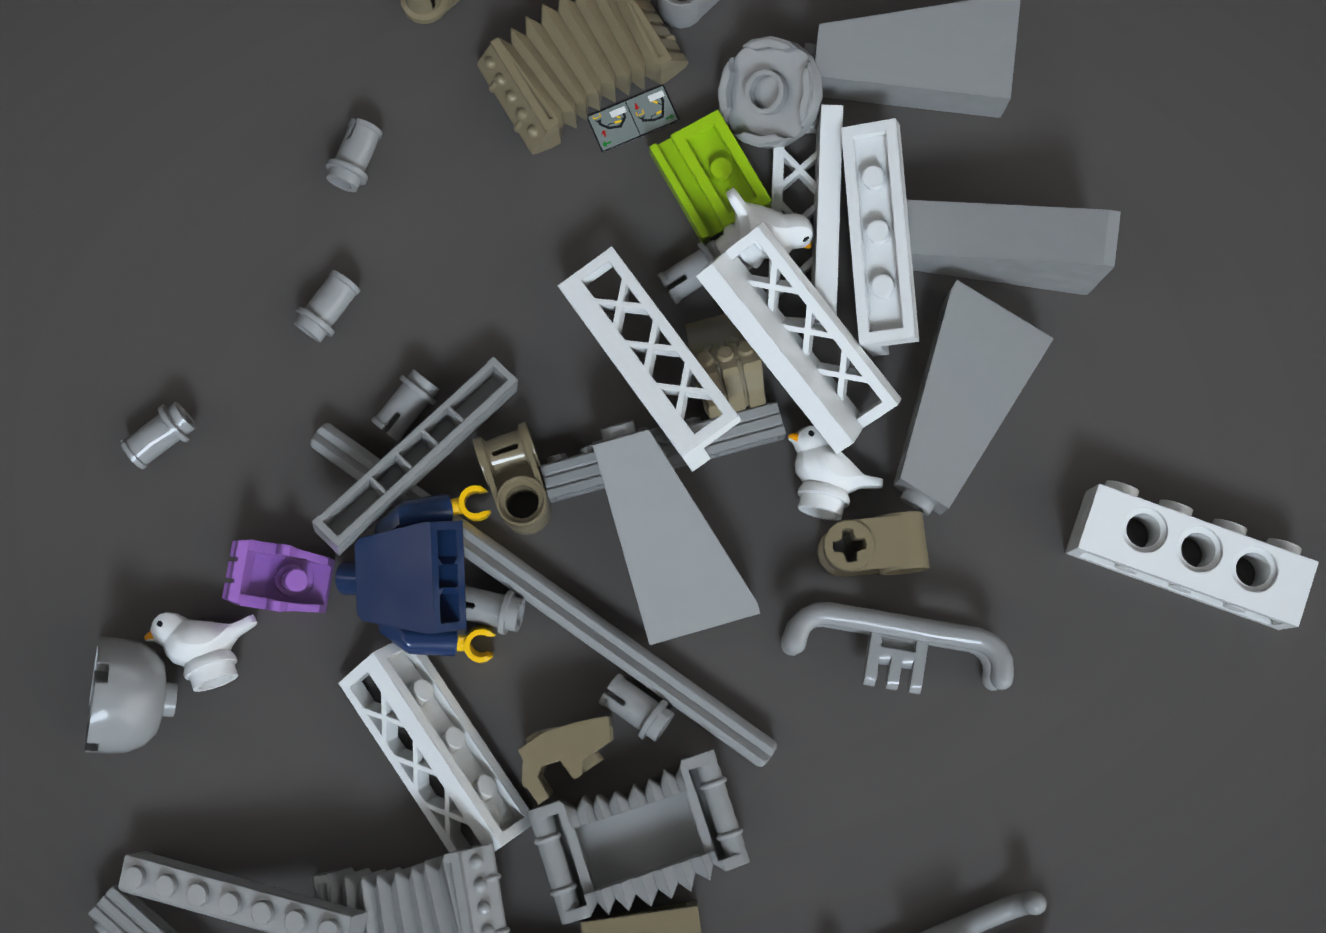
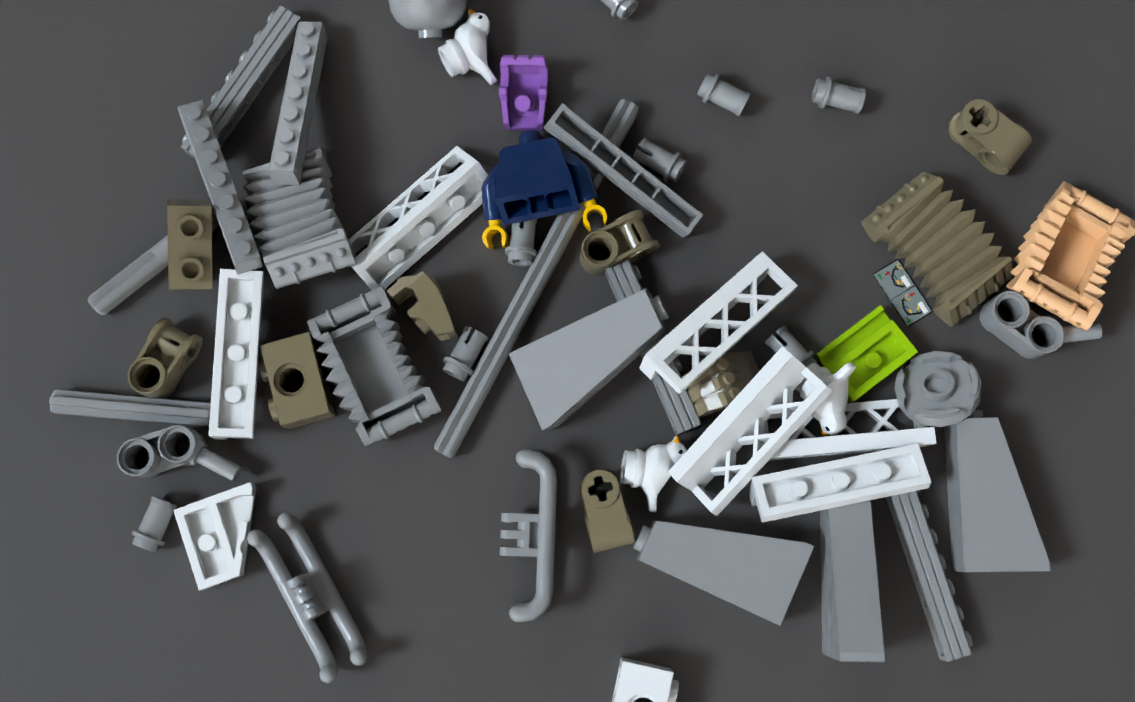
camera: 80 degrees right, 0 degrees up
(1008, 145) = (929, 576): none -> light grey piece

